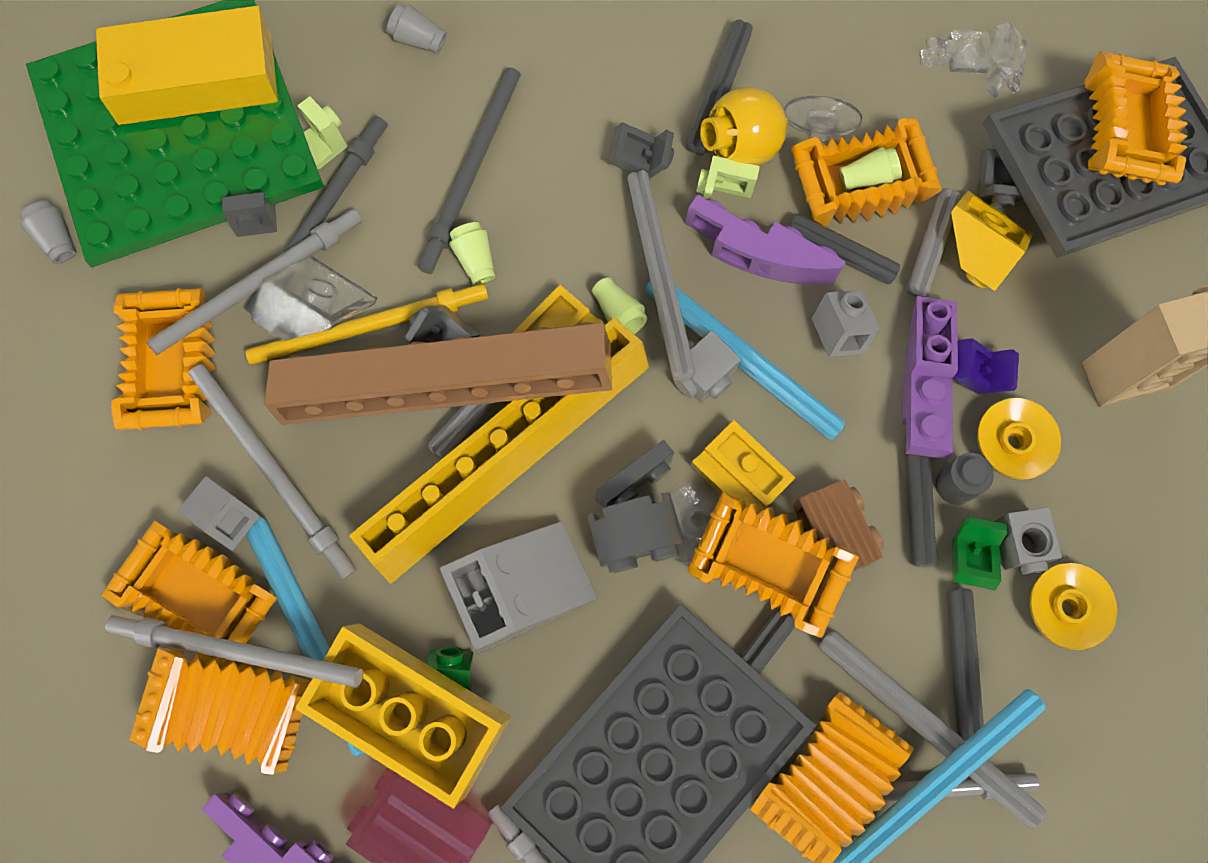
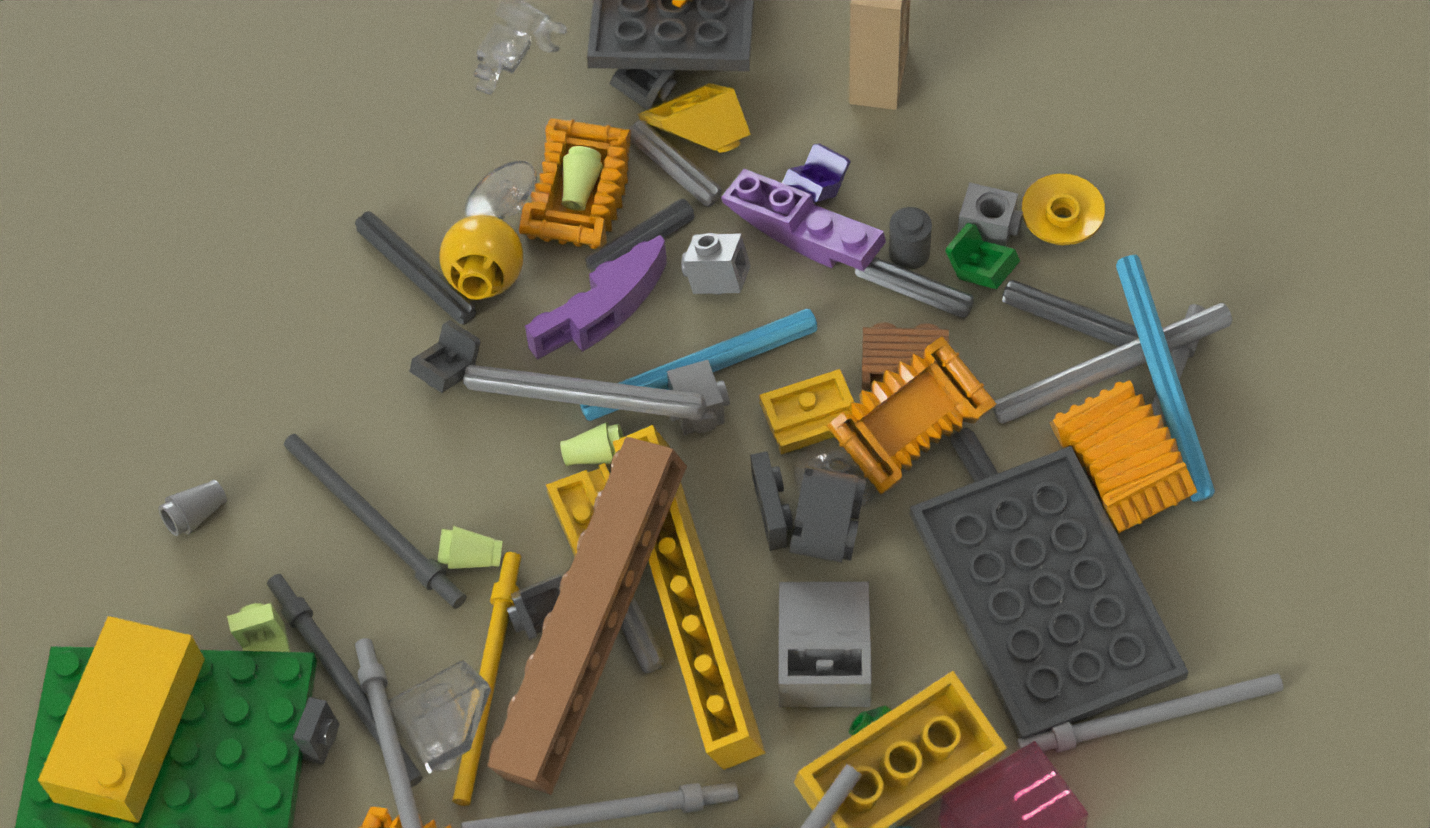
camera: 55 degrees left, 15 degrees down
(728, 177) = (515, 299): yellowish green bracket -> none
(1031, 426) = (894, 167): yellow dish -> none

